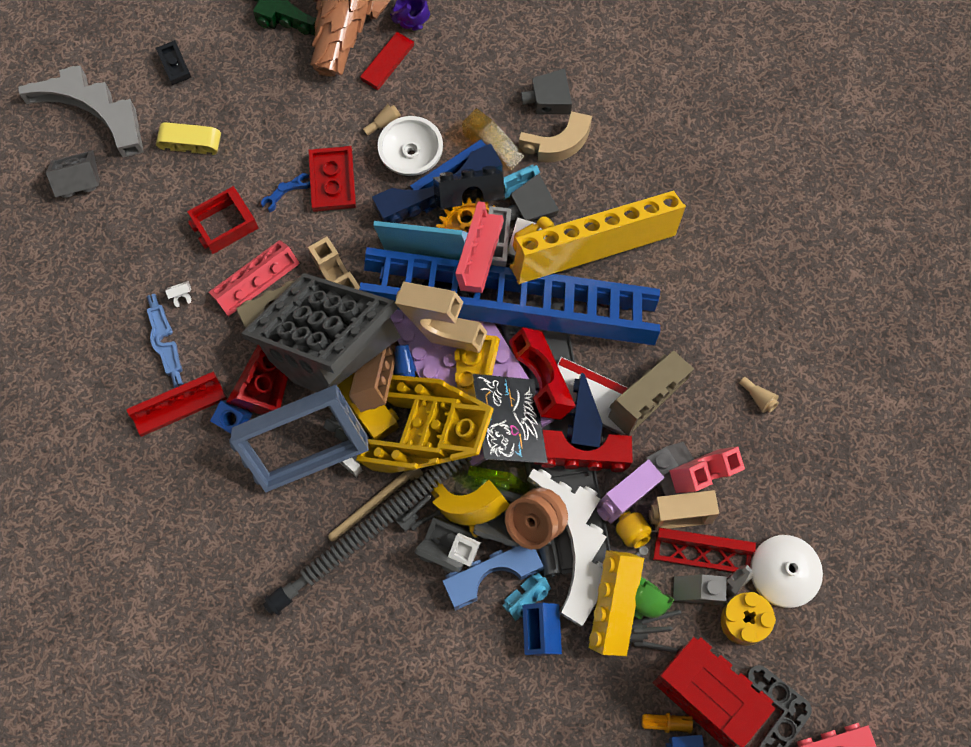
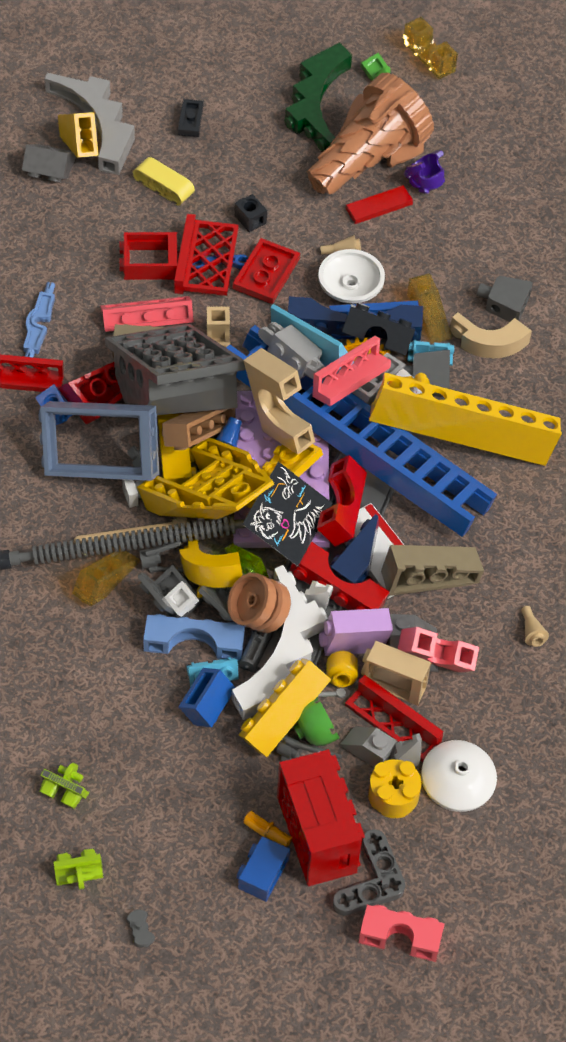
camera: 25 degrees right, 15 degrees down
(85, 133) = (79, 133): none -> yellow slope
(179, 290) = (76, 290): white tile -> none
(253, 195) = (187, 258): none -> red fence
(289, 135) = (250, 213): none -> black brick
(379, 562) = (101, 577): none -> clear yellow slope
(418, 255) = (292, 348): none -> light grey hinge
(577, 475) = (319, 593): none -> white slope

